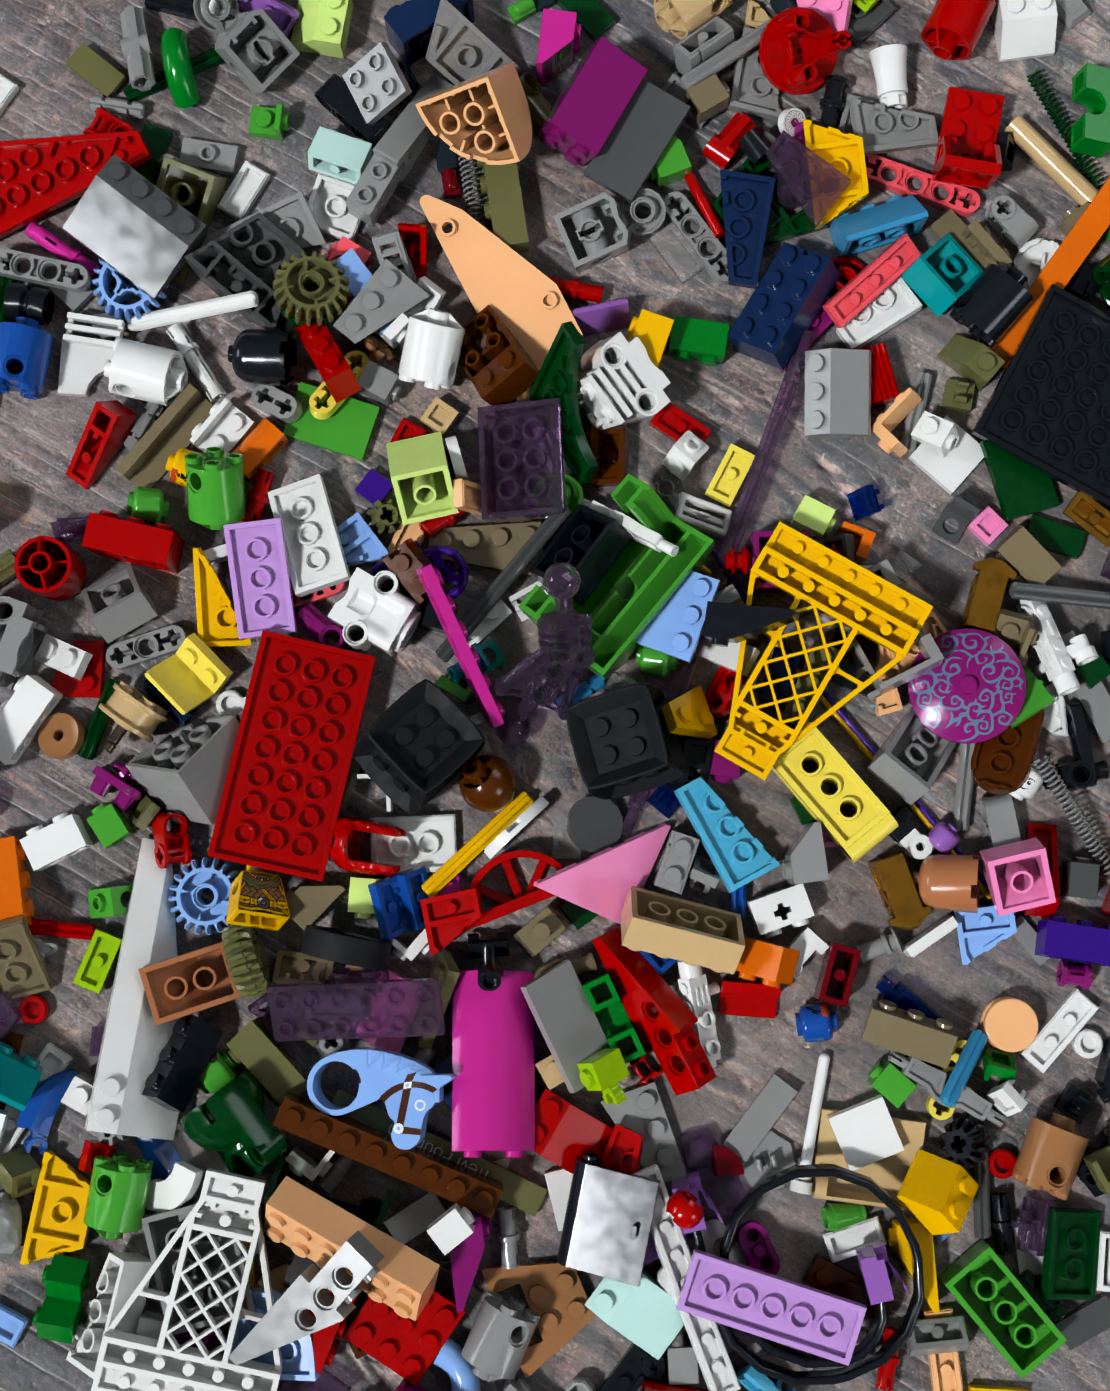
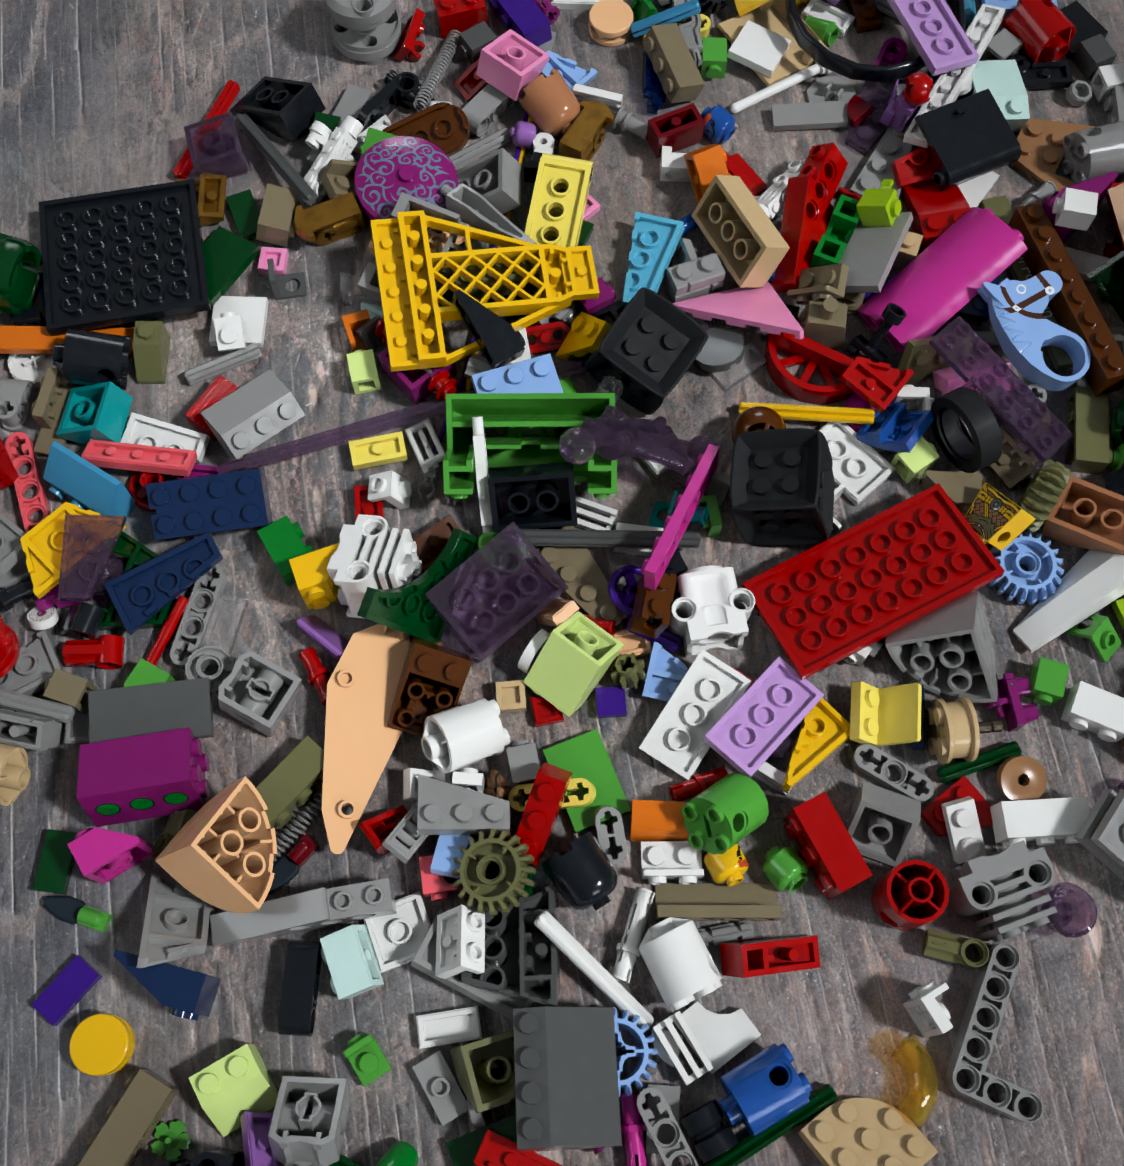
camera: 130 degrees left, 15 degrees down
(69, 528) = (859, 917): clear purple cone -> none
(144, 813) = (1013, 661): olive tile -> none
(173, 845) = (1013, 625): red piece -> none
(229, 703) = (873, 672): white tile -> none
(284, 231) = (460, 942): none -> white bracket
(318, 625) = (756, 649): magenta piece -> none
(345, 847) = (868, 486): red piece -> none
(379, 83) = (260, 971): light grey plate -> none
(513, 829) = (769, 393): white tile -> none
(574, 952) = (820, 283): none -> dark tan bracket
(764, 906) = (663, 195): white brick -> none
(805, 857) = (615, 198): light grey slope -> none
(864, 502) = (323, 345): clear blue tile -> none
(878, 721) = (479, 212): none -> light grey piece
(887, 421) = (262, 360): light nougat bracket -> none
(958, 395) = (186, 346): olive tile -> none

